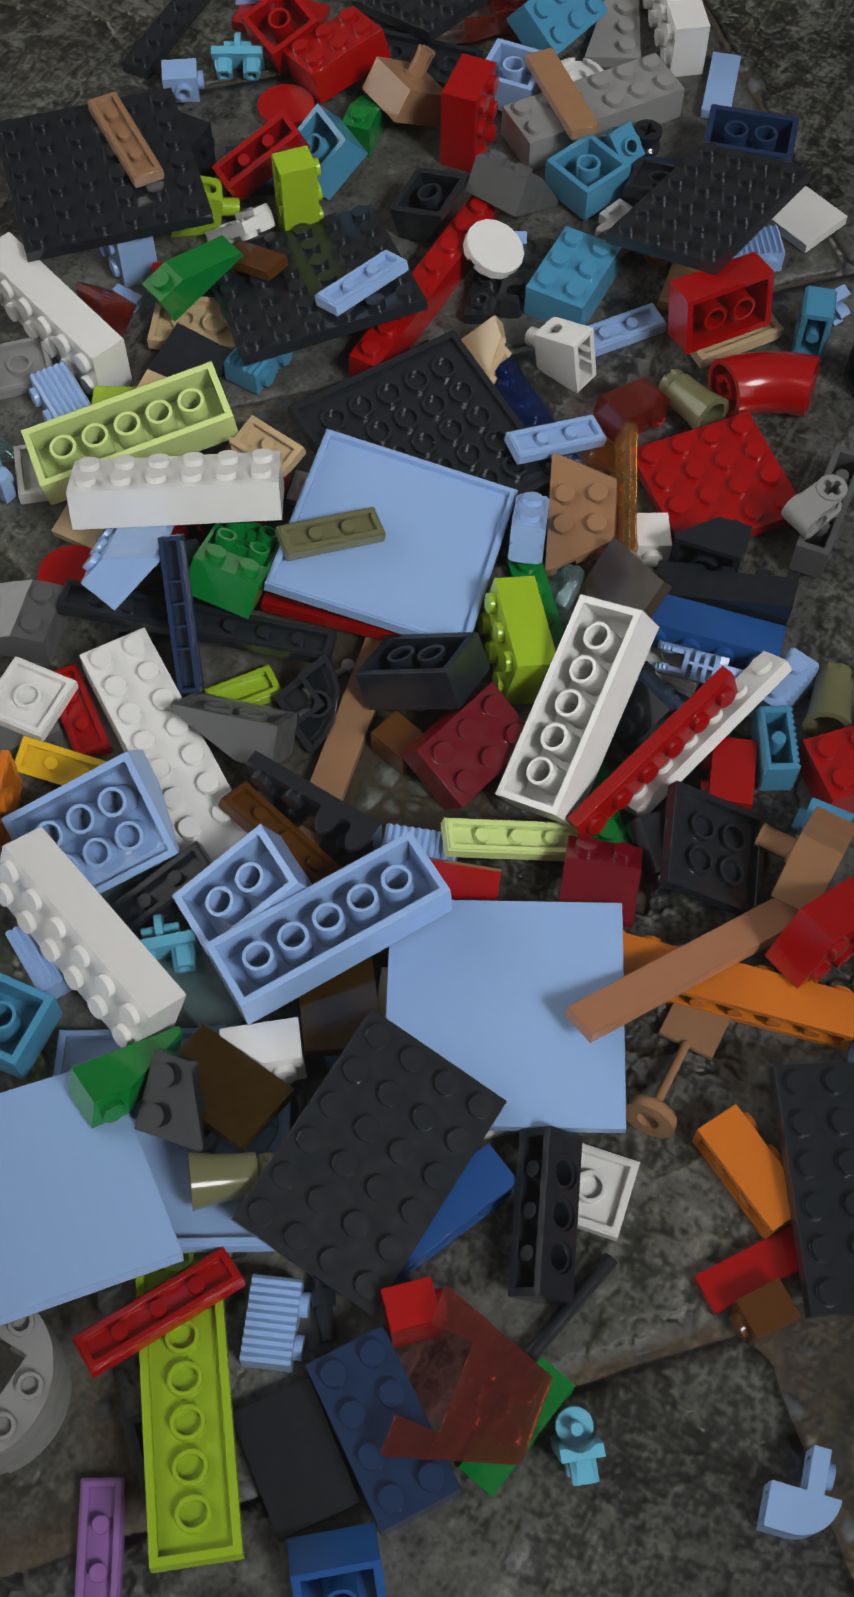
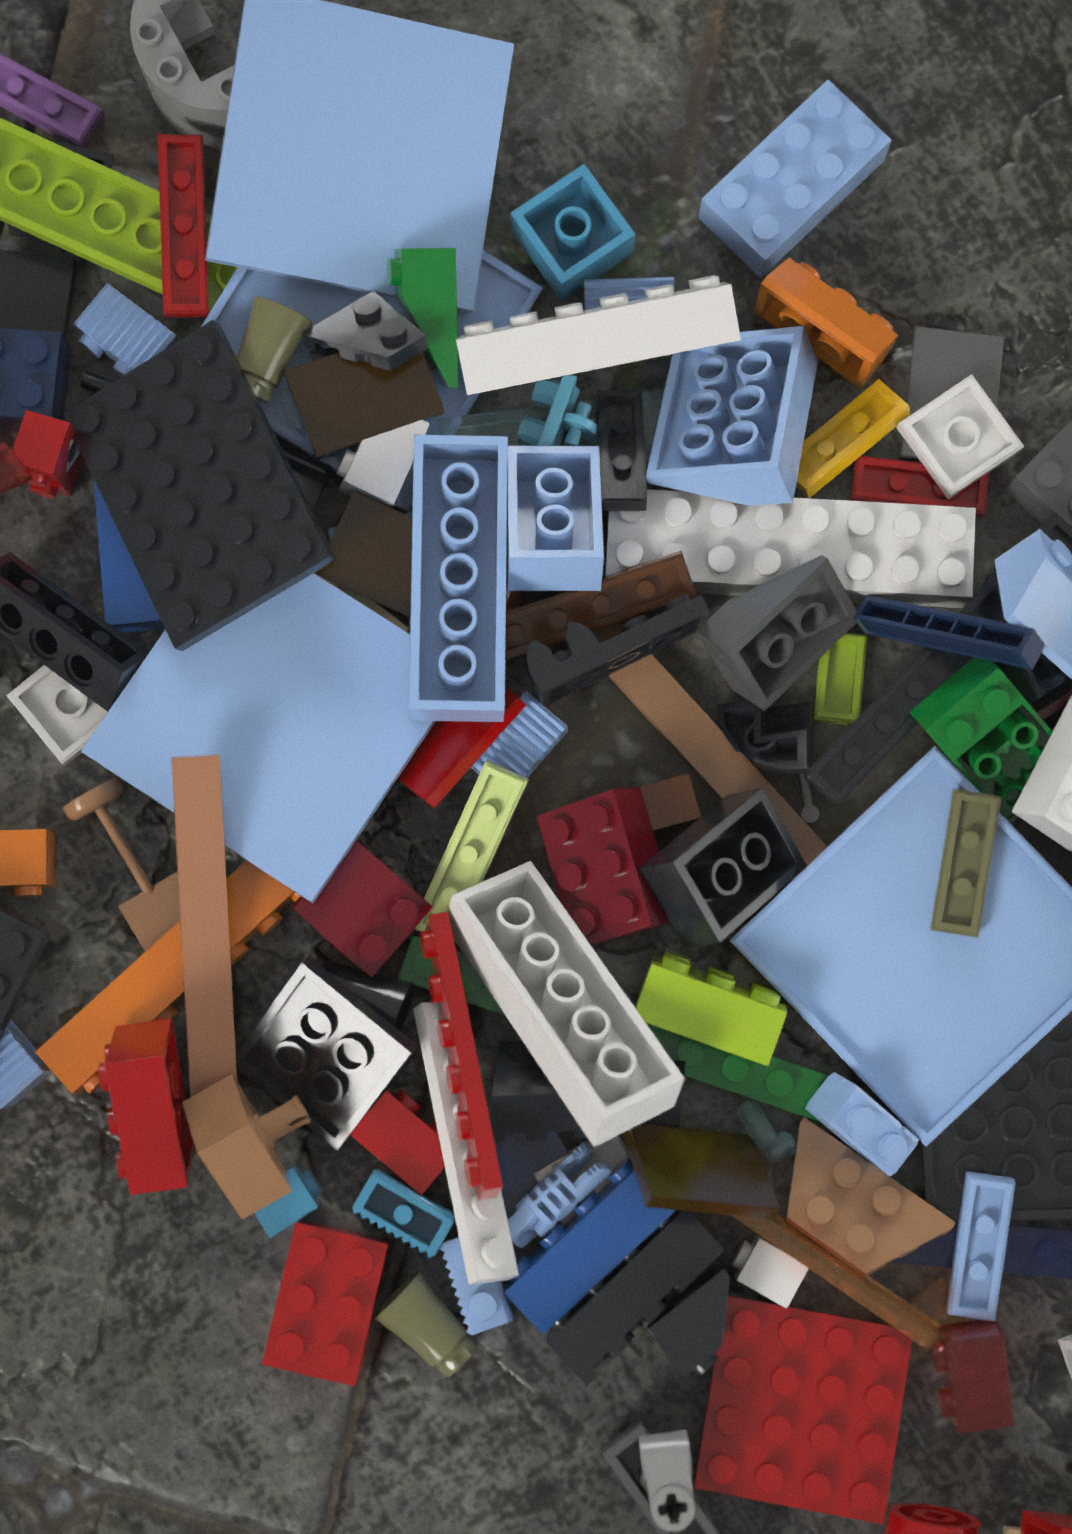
camera: 125 degrees right, 20 degrees up
(692, 400) = (947, 1468): olive plant -> none

